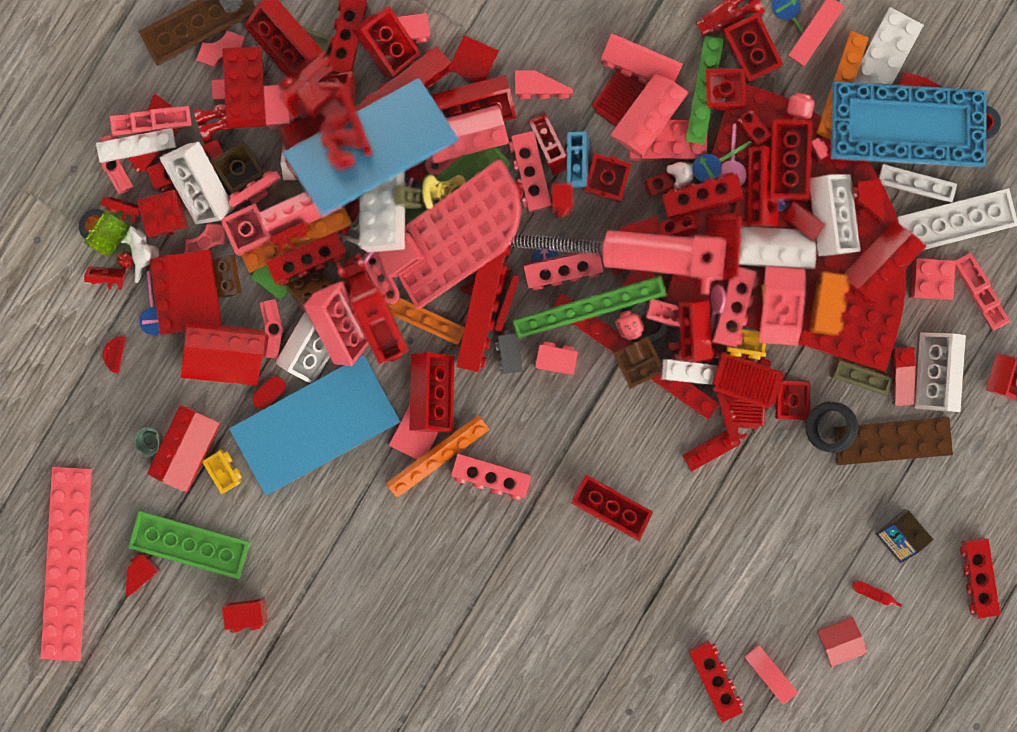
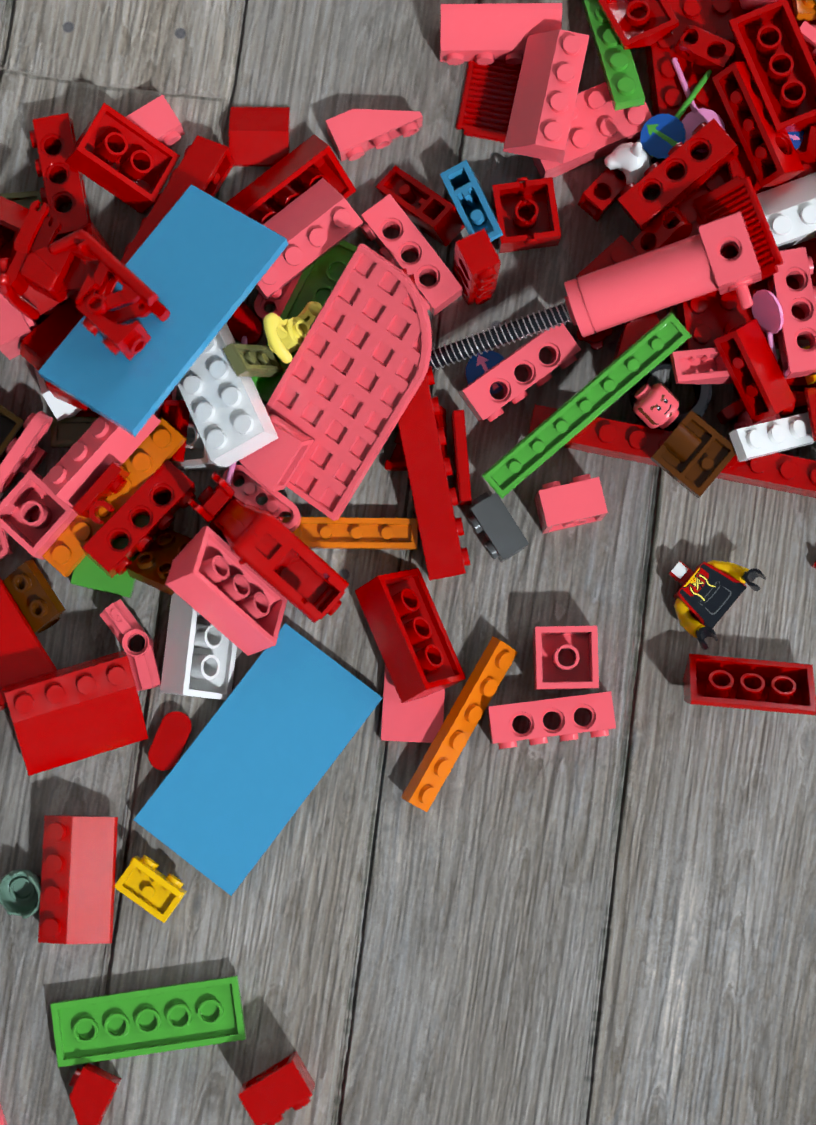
camera: 25 degrees left, 5 degrees down
(514, 445) = (565, 657): none -> coral brick
(612, 445) = (709, 594): none -> torso

